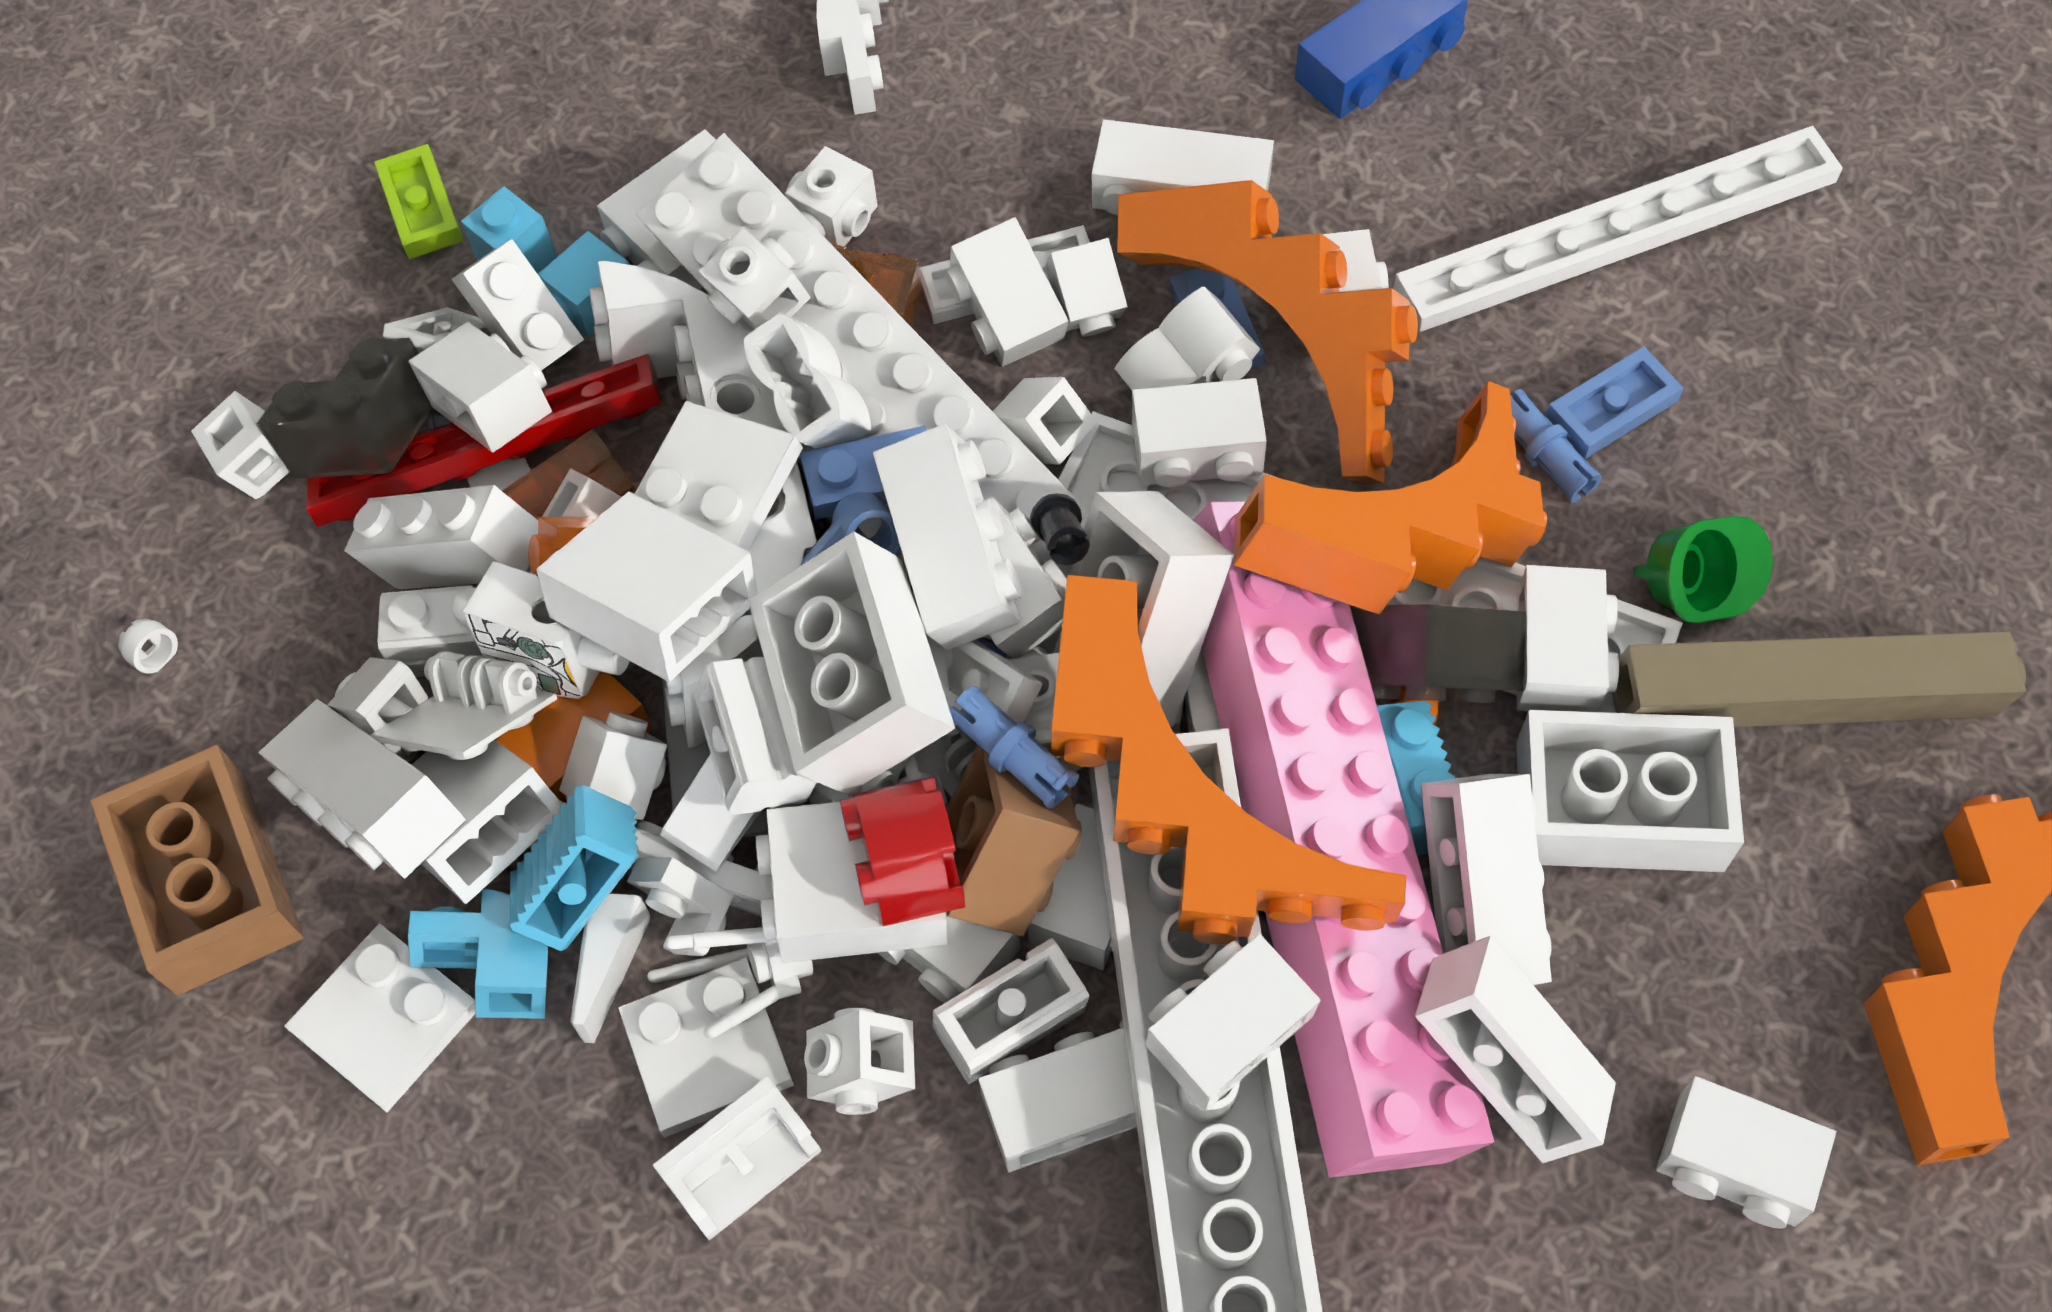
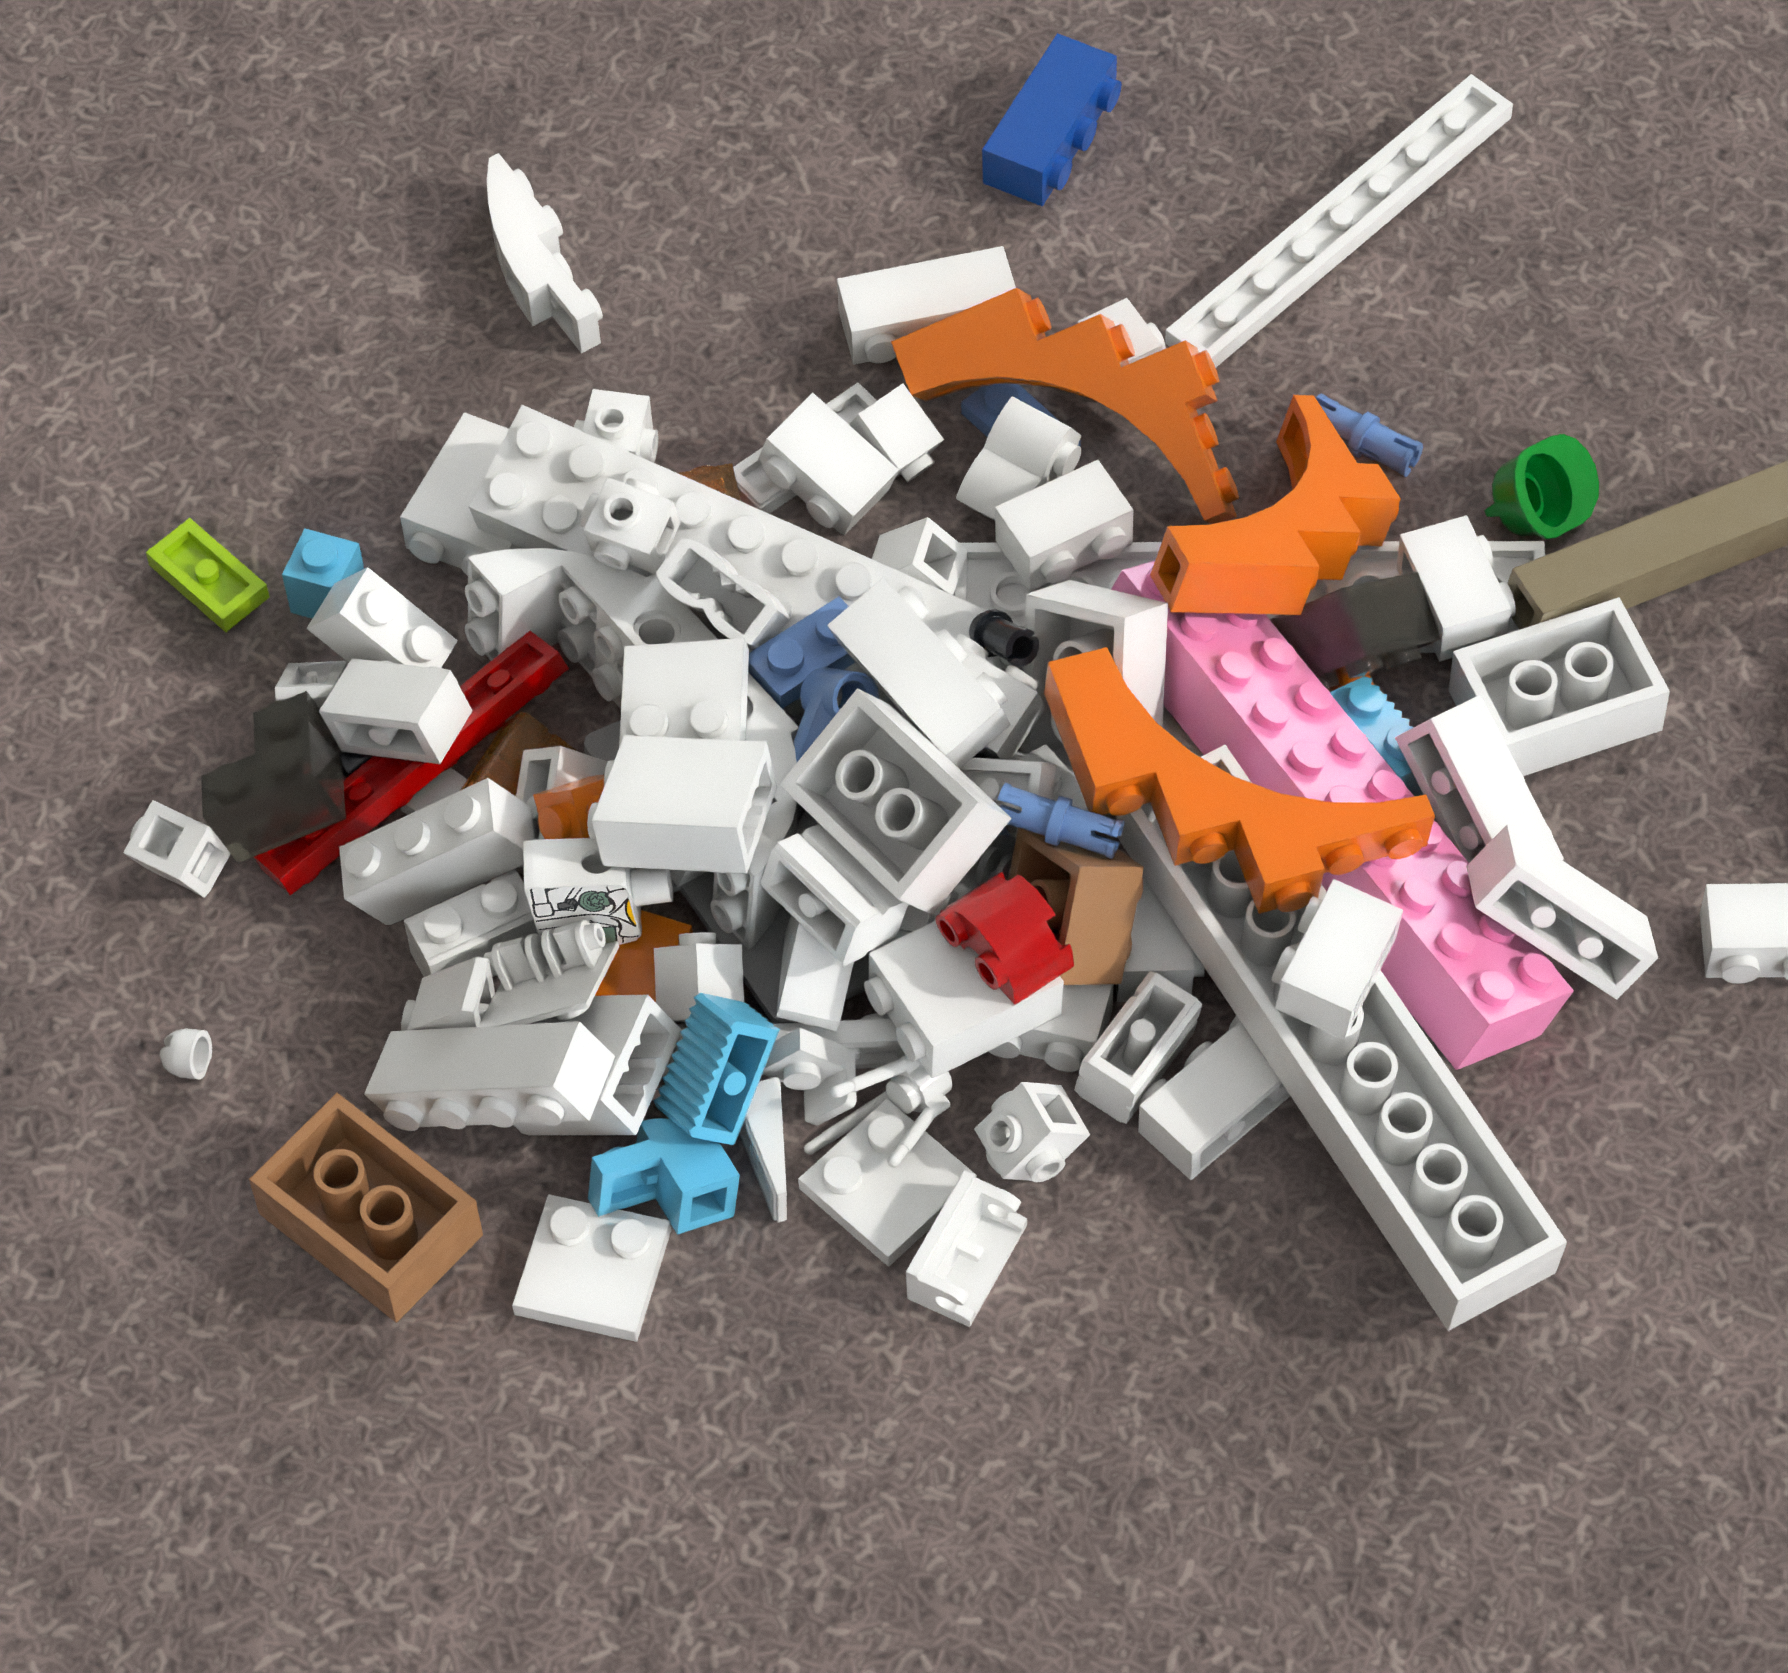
camera: 25 degrees left, 5 degrees down
(572, 276) = (429, 581): medium azure brick -> none
(1615, 402) = (1406, 376): medium blue plate -> none

